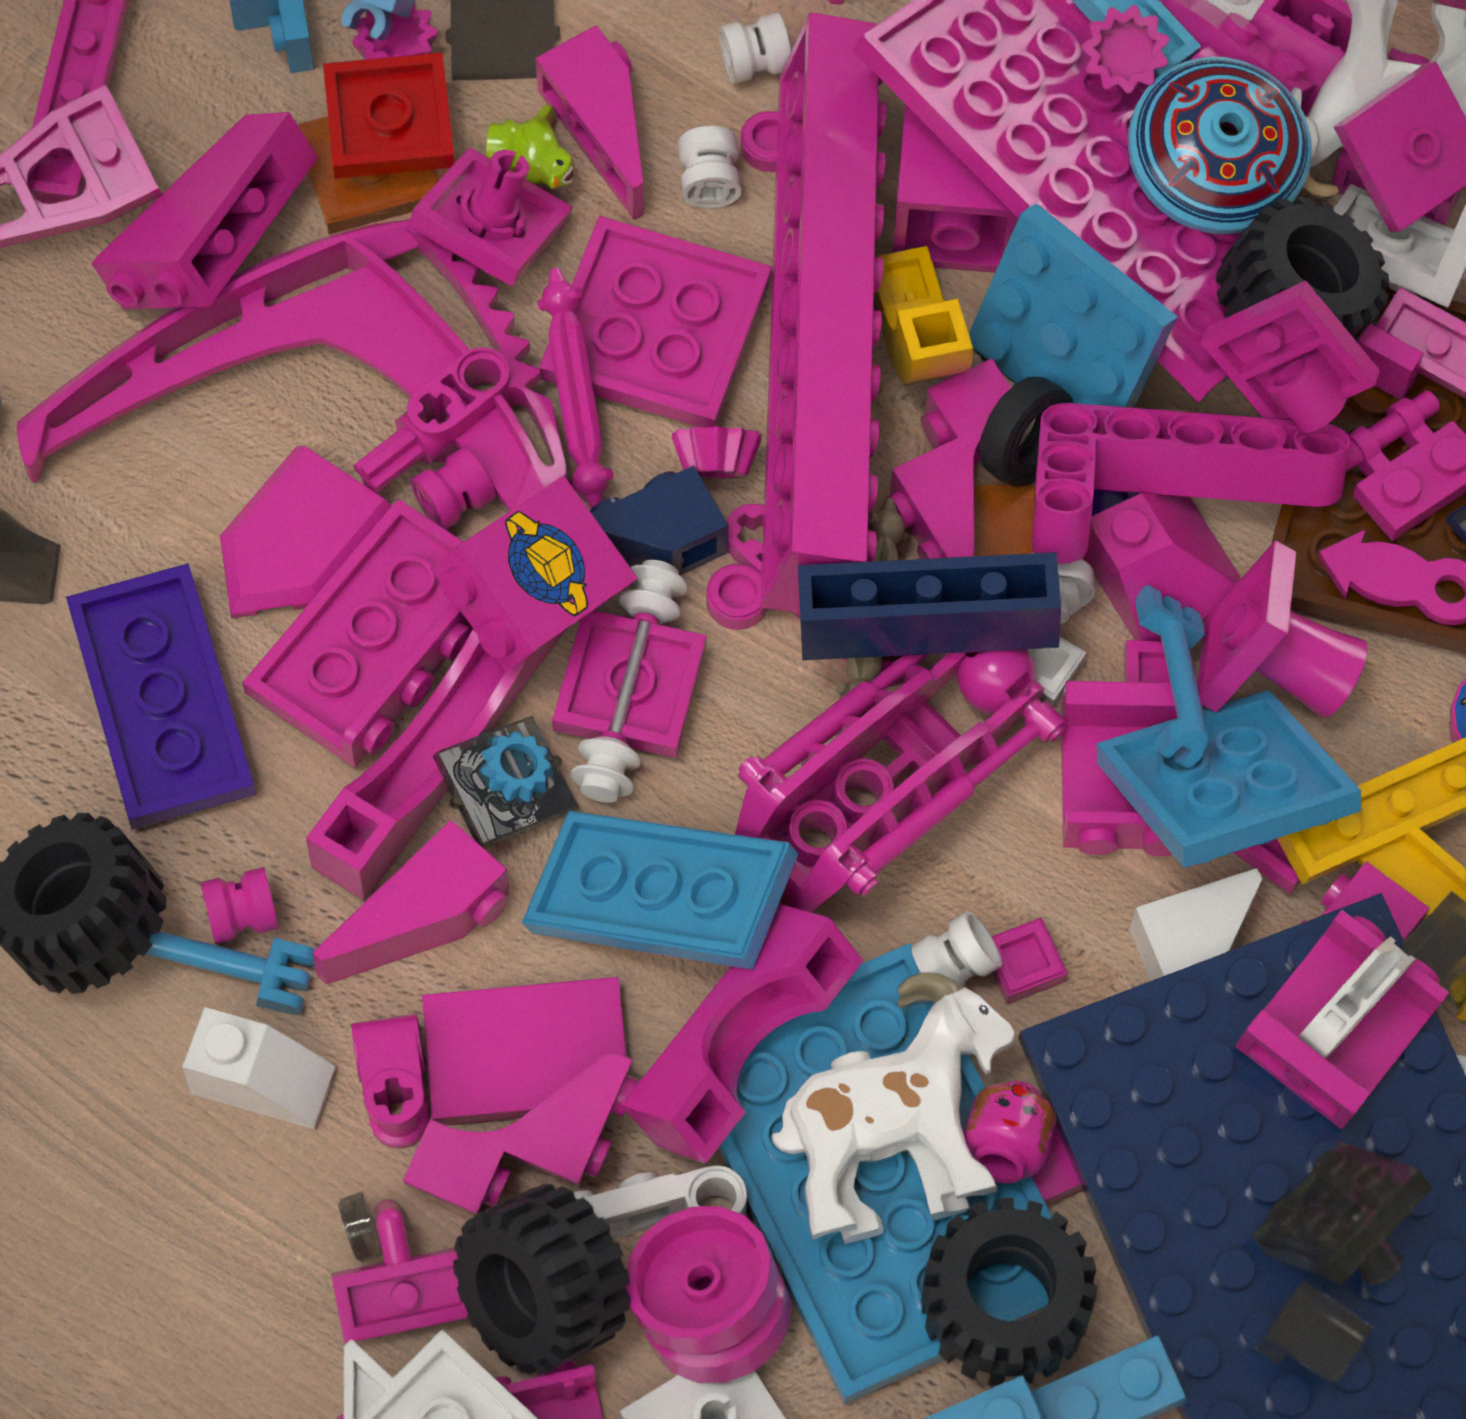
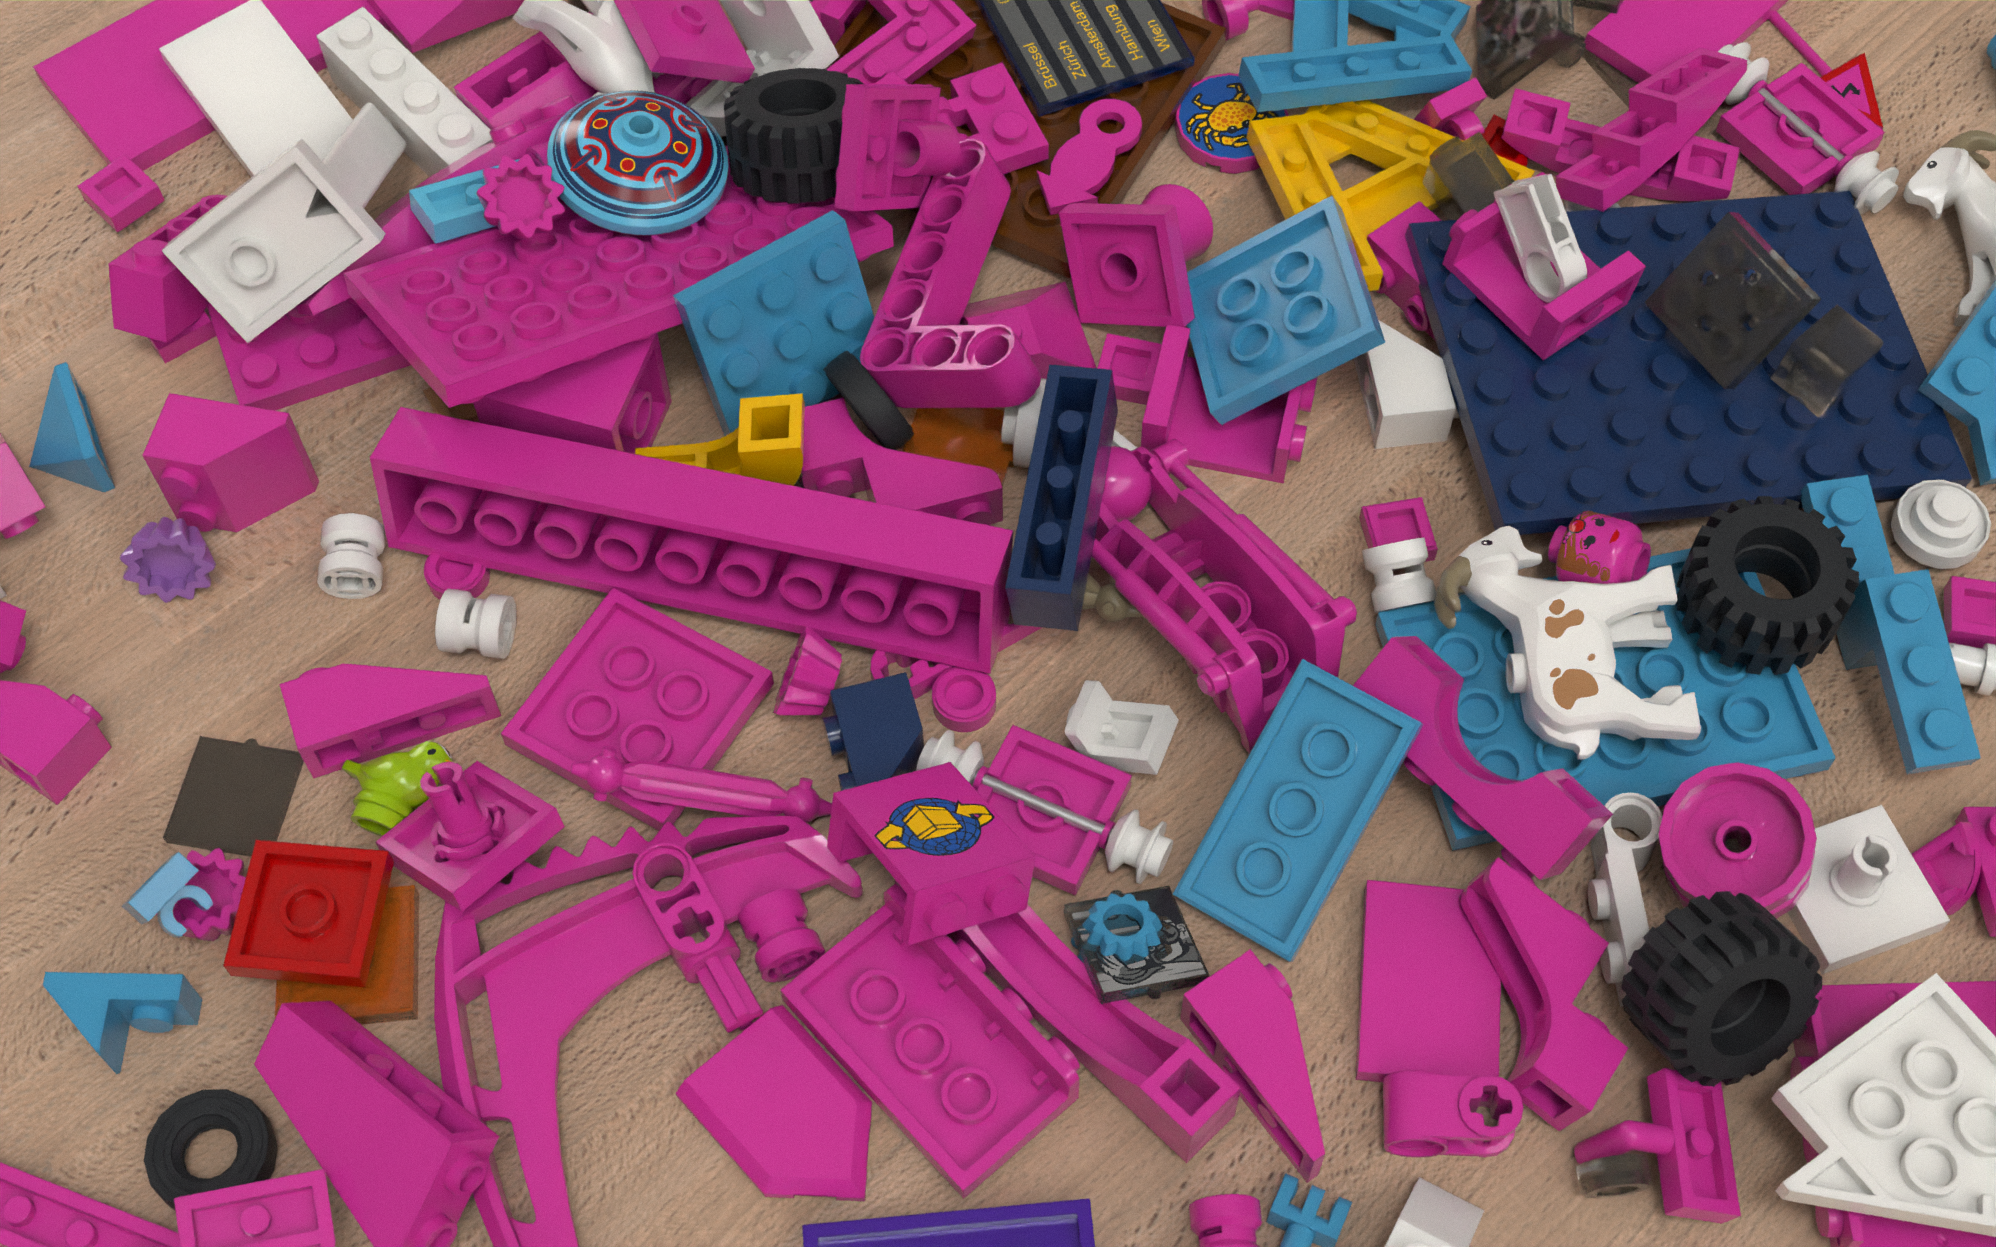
camera: 75 degrees left, 5 degrees down
(167, 82) = (196, 1114): none -> black tyre
(723, 726) = (1120, 732): none -> white bracket
(1179, 633) = (1098, 329): dark azure hinge -> none

